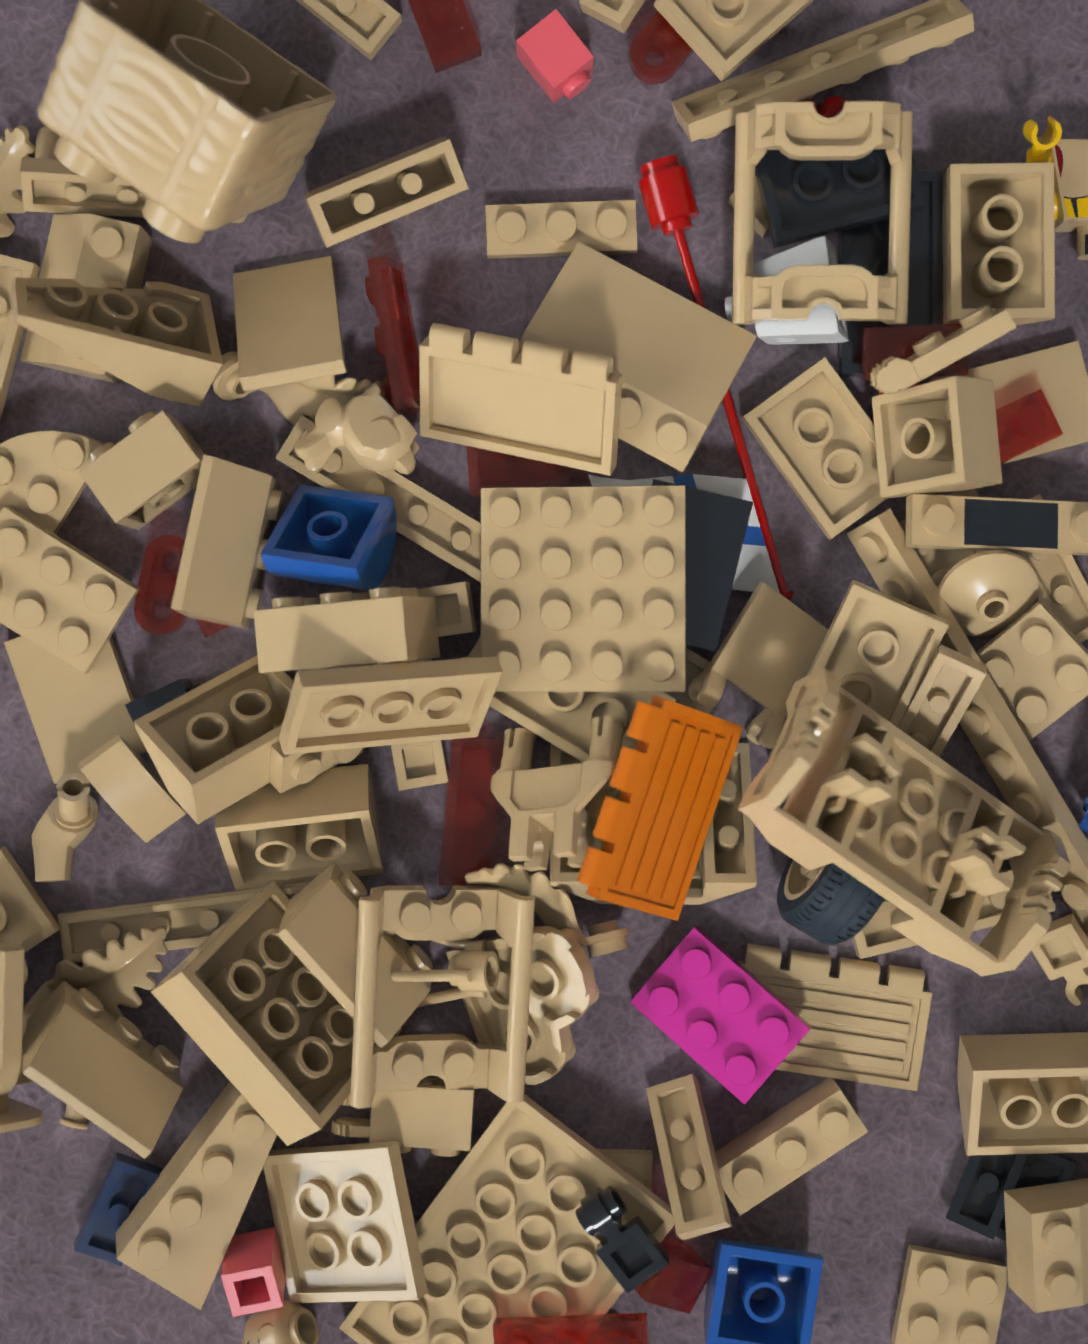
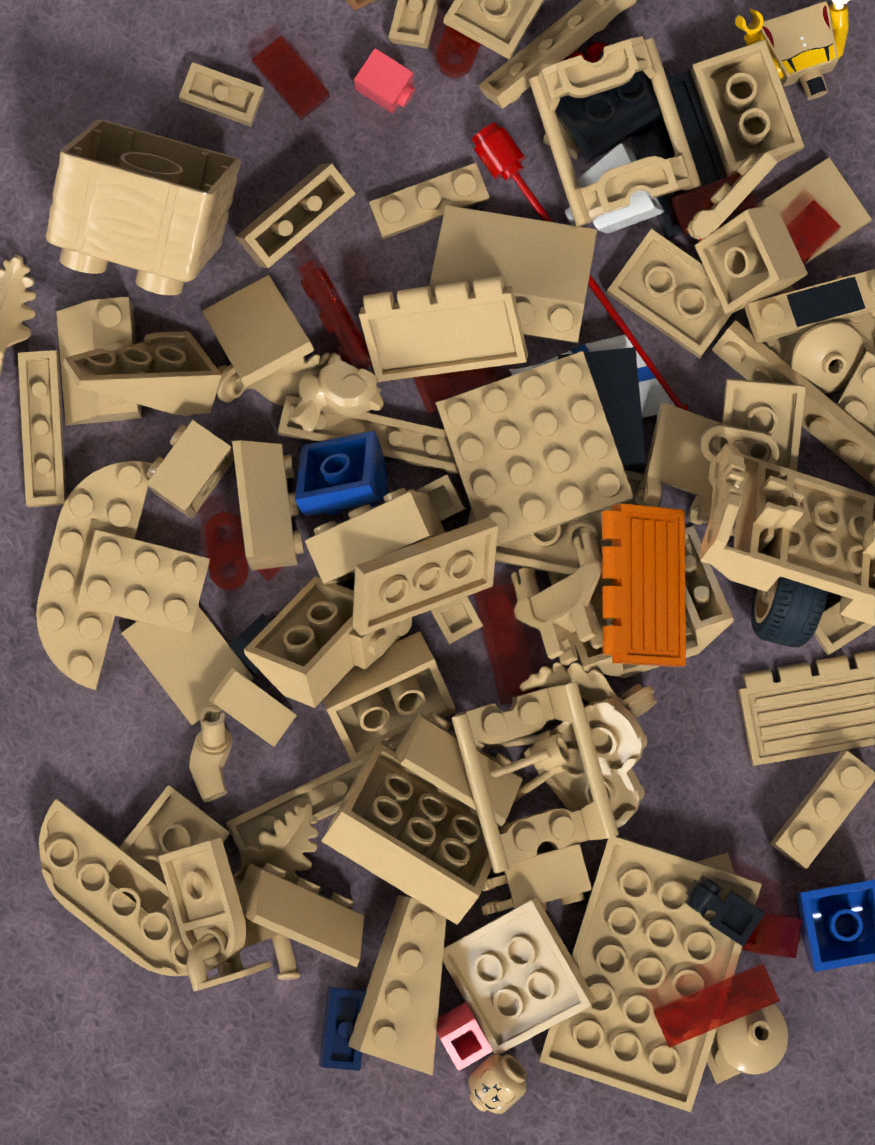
camera: 25 degrees left, 5 degrees down
(56, 189) = (66, 287): tan piece -> none
(688, 1157) = (753, 838): tan plate -> none
(720, 1014) = (741, 729): dark pink plate -> none
(843, 664) = (742, 438): none -> tan plate
(942, 698) = (820, 440): tan plate -> none

